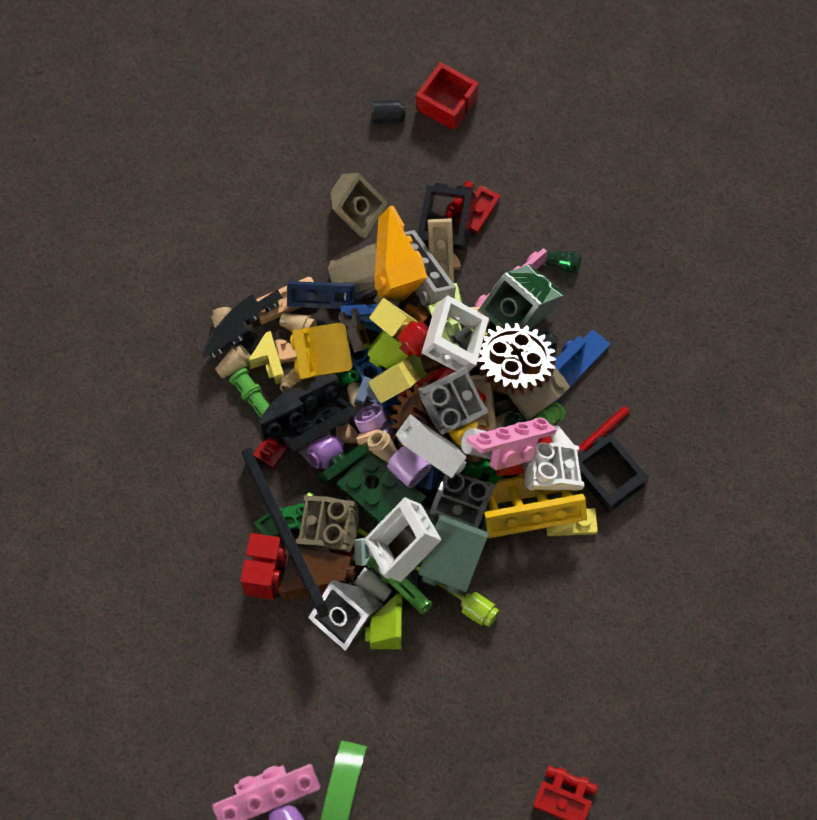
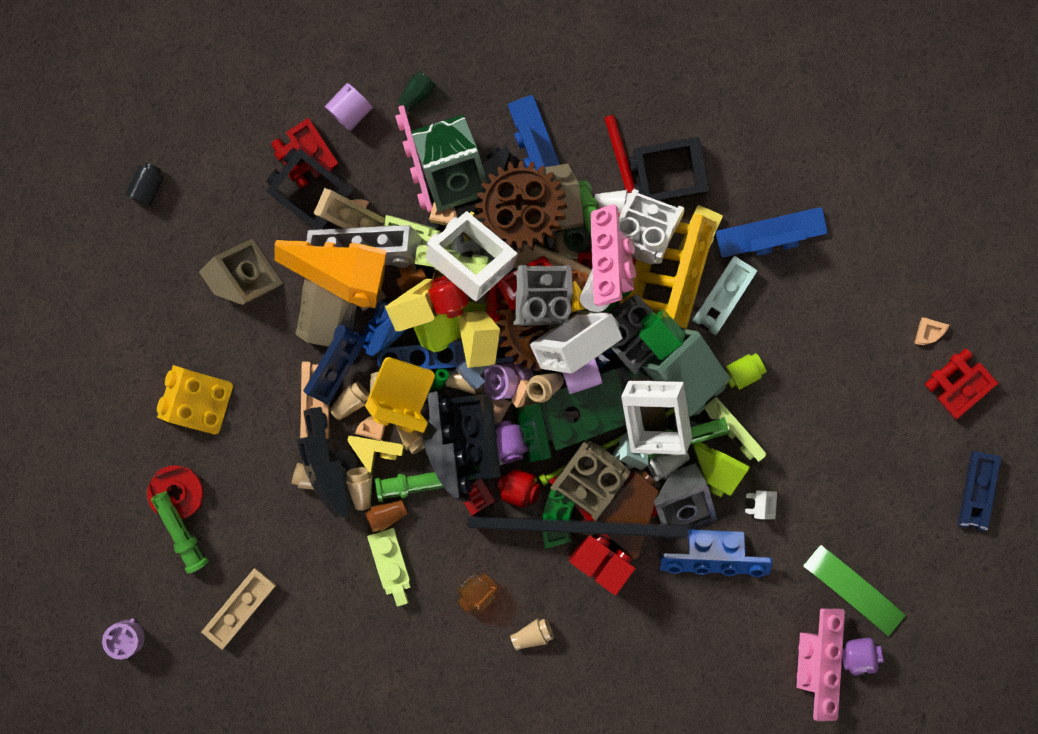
camera: 65 degrees left, 20 degrees up
(33, 249) = (123, 639): none -> lavender piece
(96, 320) = (238, 608): none -> tan plate
(128, 258) = (184, 542): none -> bright green pin
(165, 248) = (184, 479): none -> red plate
(178, 547) = (532, 635): none -> tan cone
(183, 414) = (390, 564): none -> yellowish green hinge
(191, 487) = (477, 593): none -> clear orange head
(220, 390) = (385, 515): none -> dark orange cone
(243, 218) = (194, 400): none -> yellow bracket
(292, 479) = (519, 488): none -> red head
(315, 660) = (716, 553): none -> blue bracket
(357, 334) = (405, 350): dark brown plate -> none
(377, 679) = (764, 504): none -> white tile
(427, 624) = (750, 447): none -> yellowish green hinge
(447, 96) = (161, 112): red piece -> none
(472, 509) = (661, 333): none -> green brick
(524, 218) = (348, 107): none -> lavender piece
(534, 564) = (725, 294): none -> light aqua plate
(595, 749) = (930, 331): none -> light nougat tile
(609, 582) = (765, 234): none -> blue bracket

